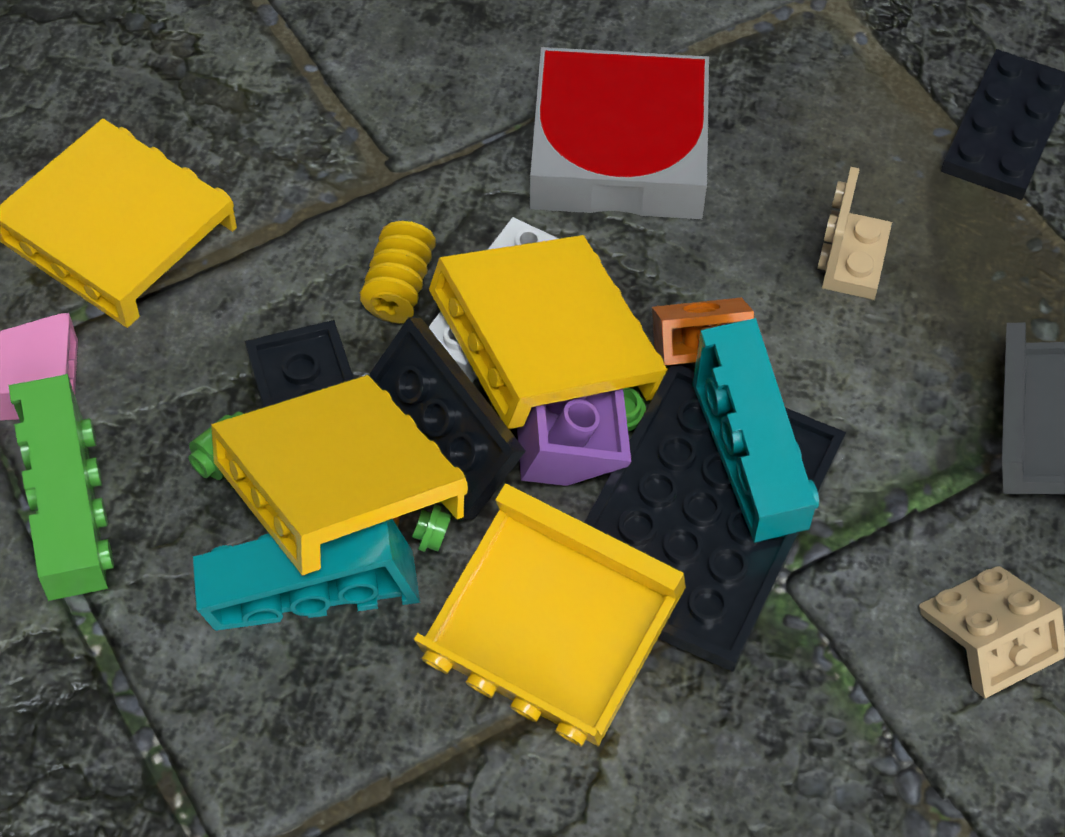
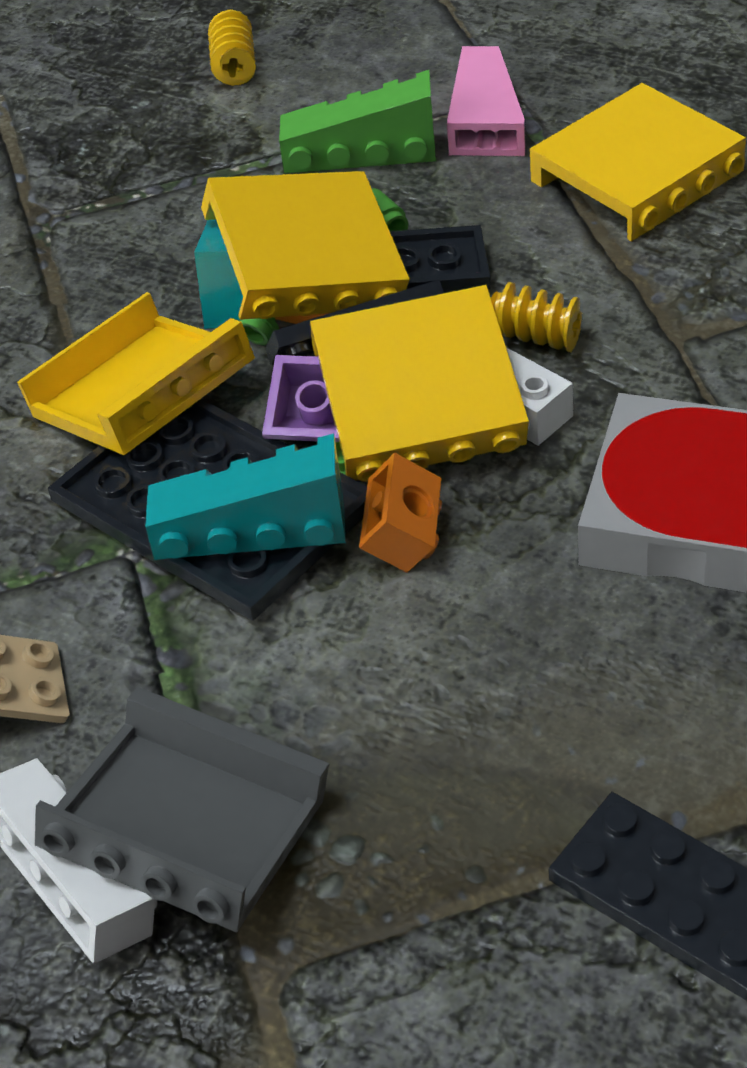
camera: 110 degrees right, 10 degrees down
(857, 246) = (496, 659): tan bracket -> none

